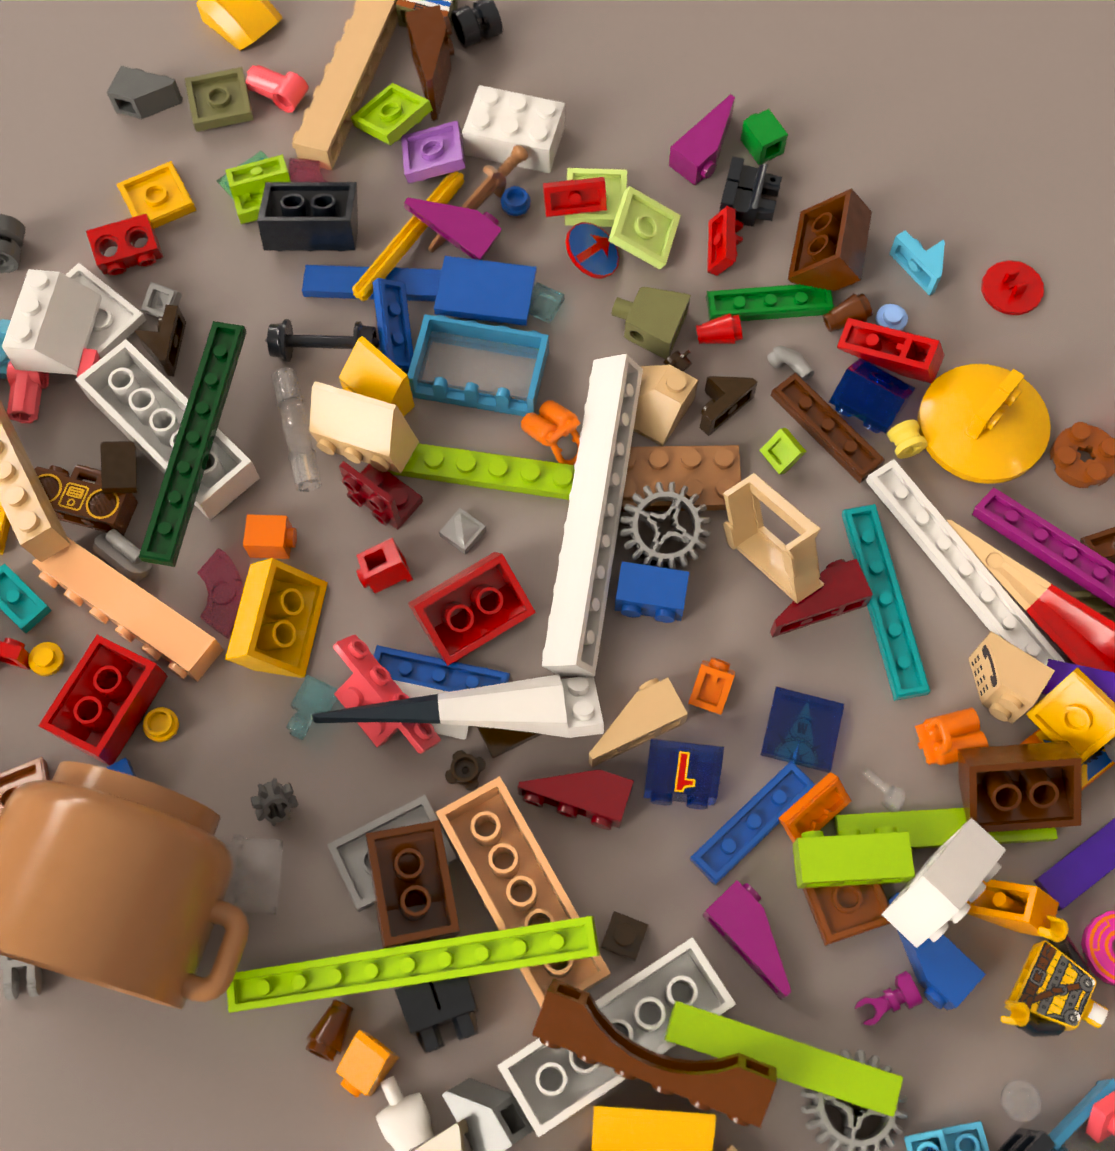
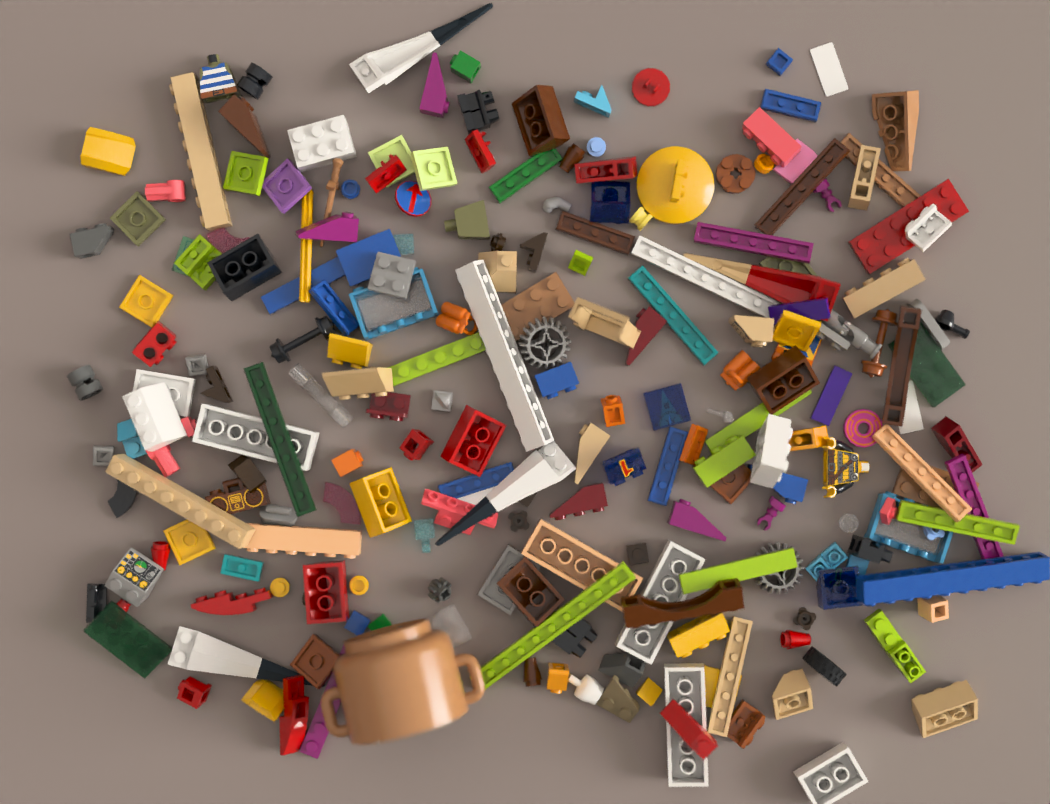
camera: 35 degrees left, 20 degrees up
(499, 319) = (391, 275): none -> light grey plate
(667, 85) = (390, 62): none -> white plate
(720, 330) = (509, 208): red cone -> none

